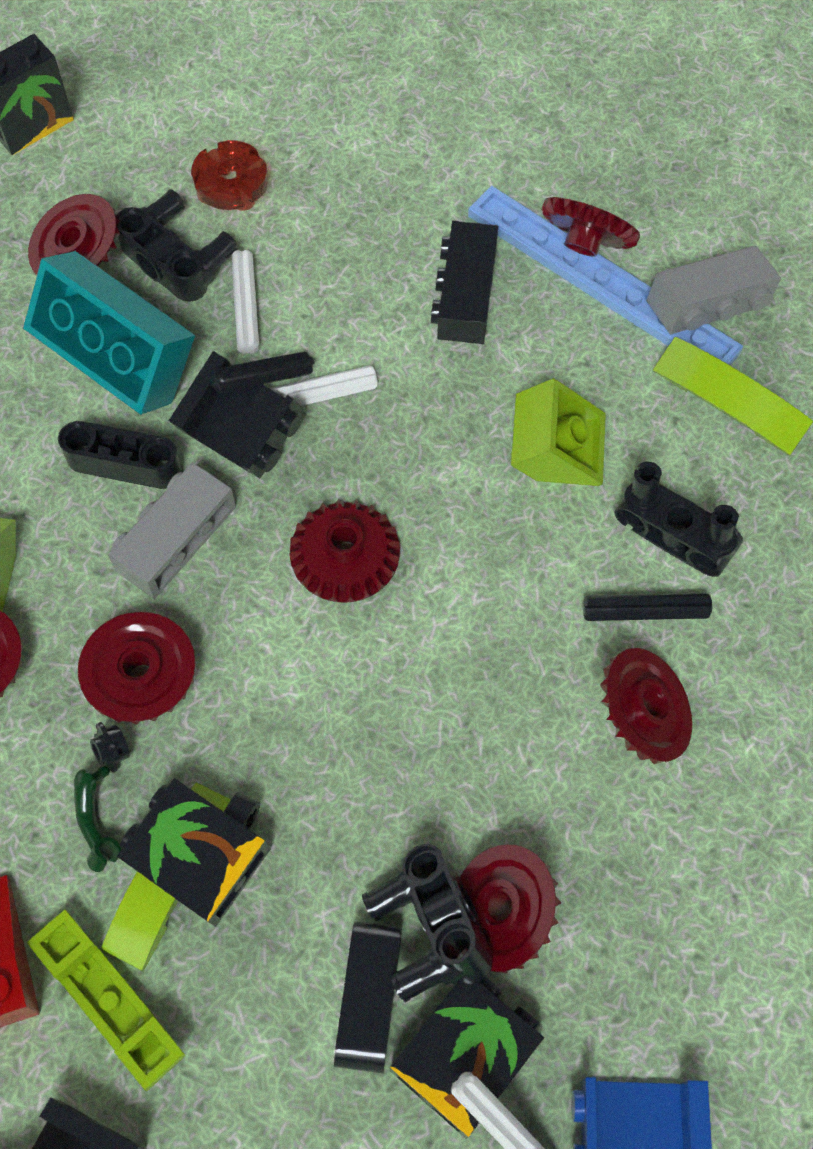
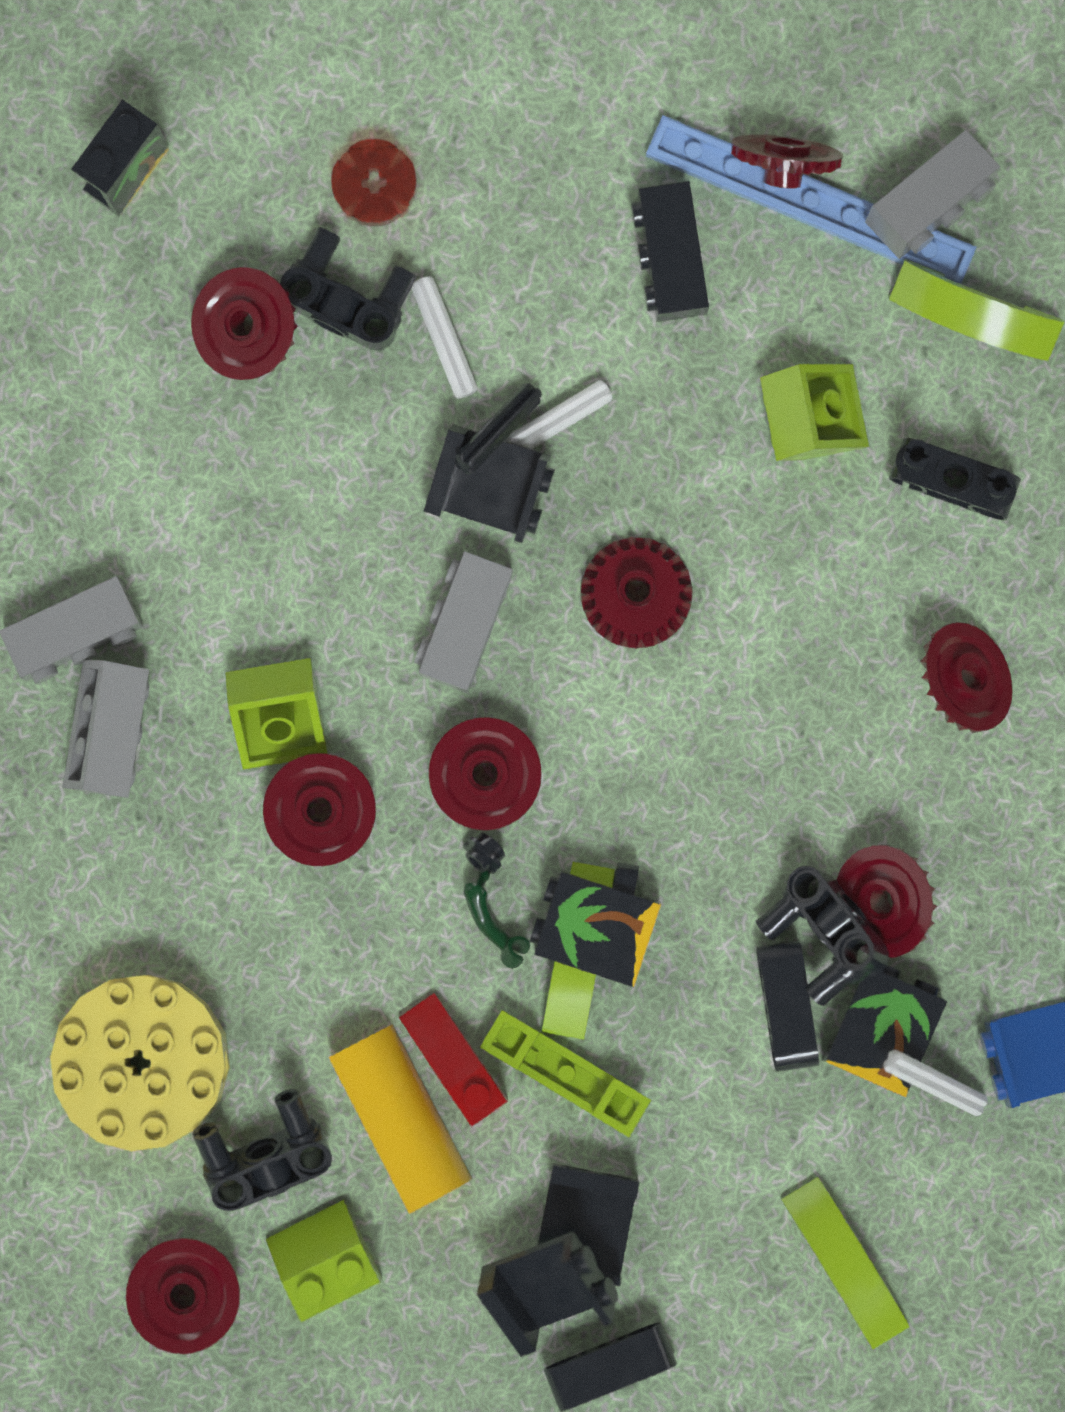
camera: 15 degrees left, 20 degrees up
(108, 331) = (327, 430): teal brick -> none
(119, 454) = (372, 547): black beam -> none
(647, 606) = (943, 569): black axle -> none

